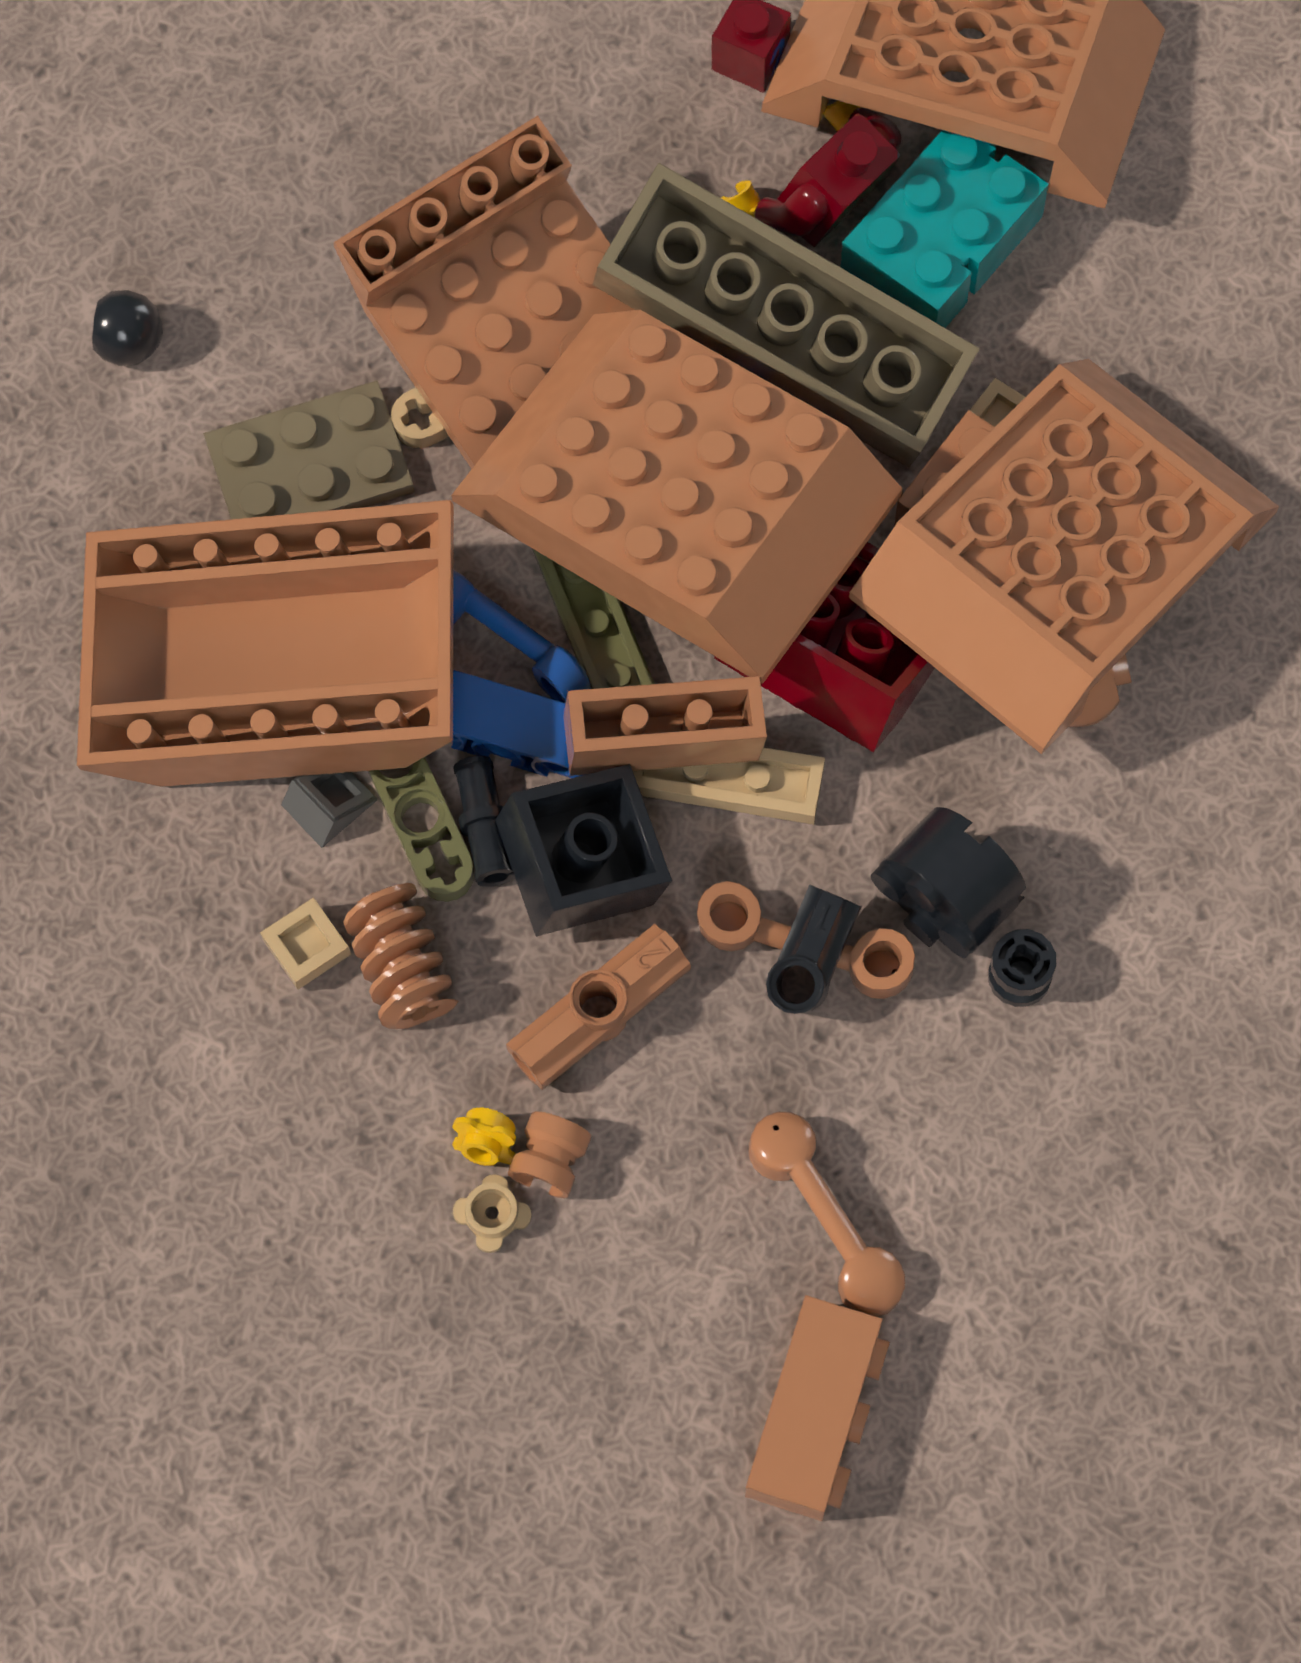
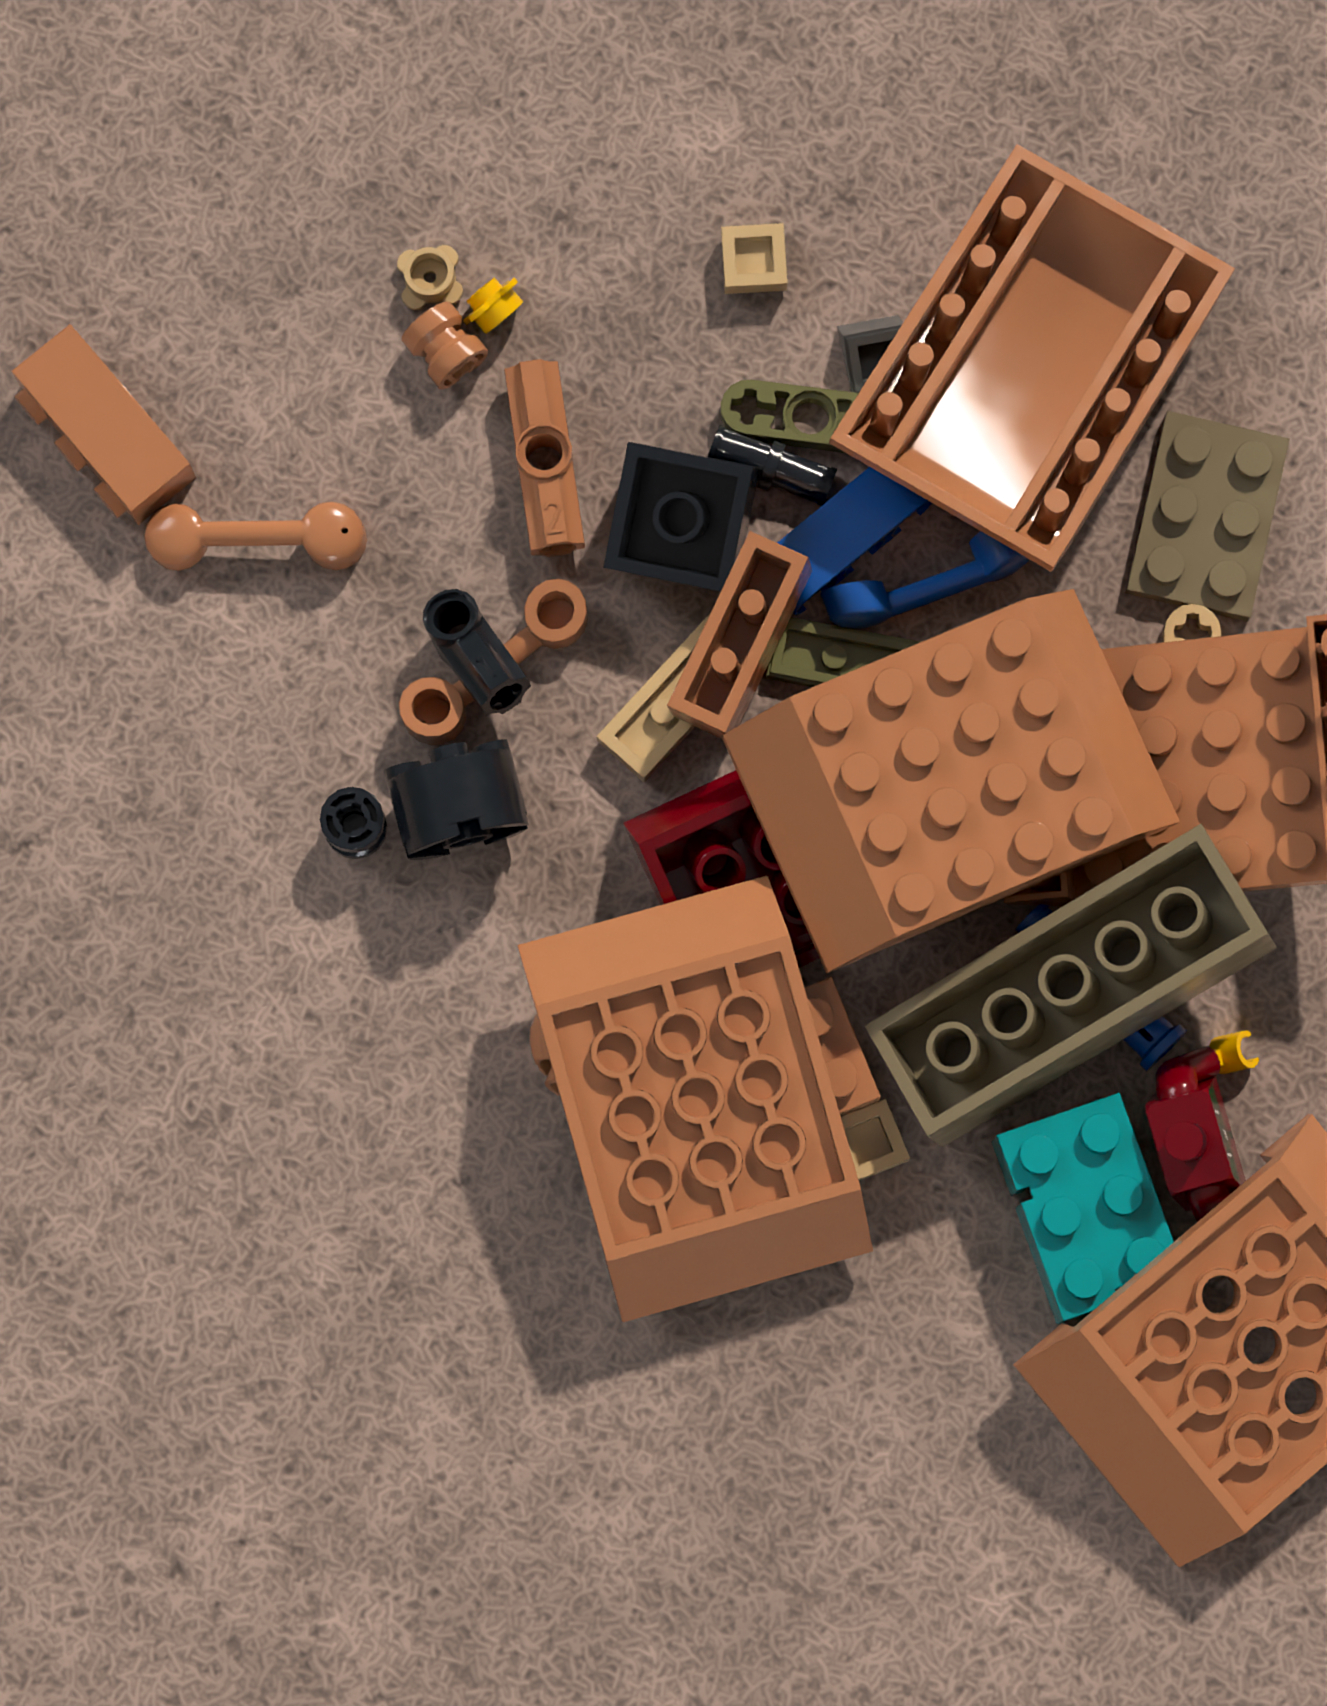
camera: 120 degrees right, 10 degrees up
(395, 960) = (690, 322): nougat piece -> none

